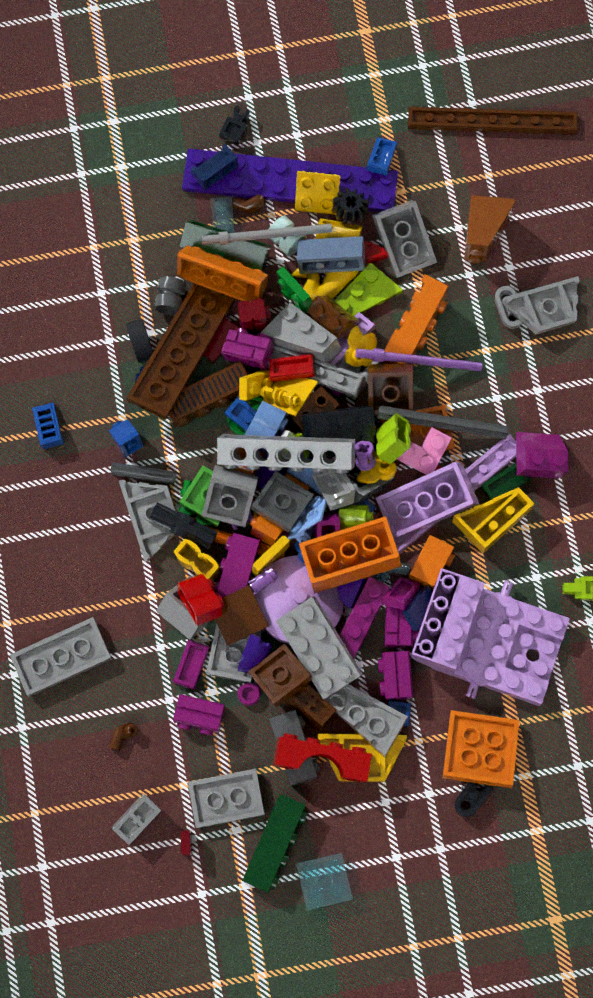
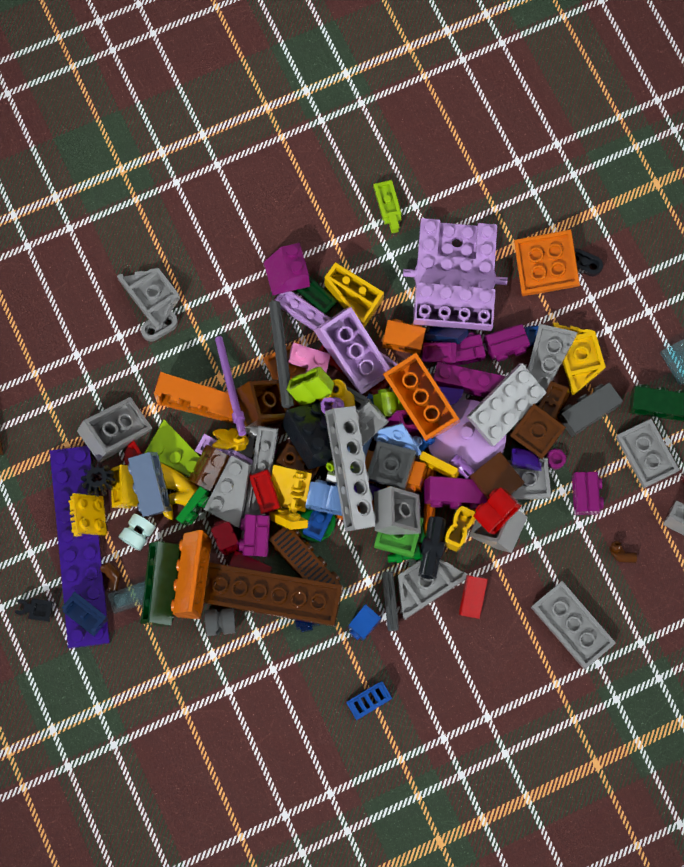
camera: 115 degrees left, 0 degrees up
(121, 558) = (473, 596): none -> red tile
(139, 340) = (271, 635): black tyre -> none
(191, 664) = (545, 513): magenta tile -> none
(224, 238) = (158, 579): light grey bar -> none
(351, 764) = (600, 401): red arch -> none
(381, 156) = (39, 467): blue plate -> none
(485, 225) = (92, 359): dark orange slope -> none

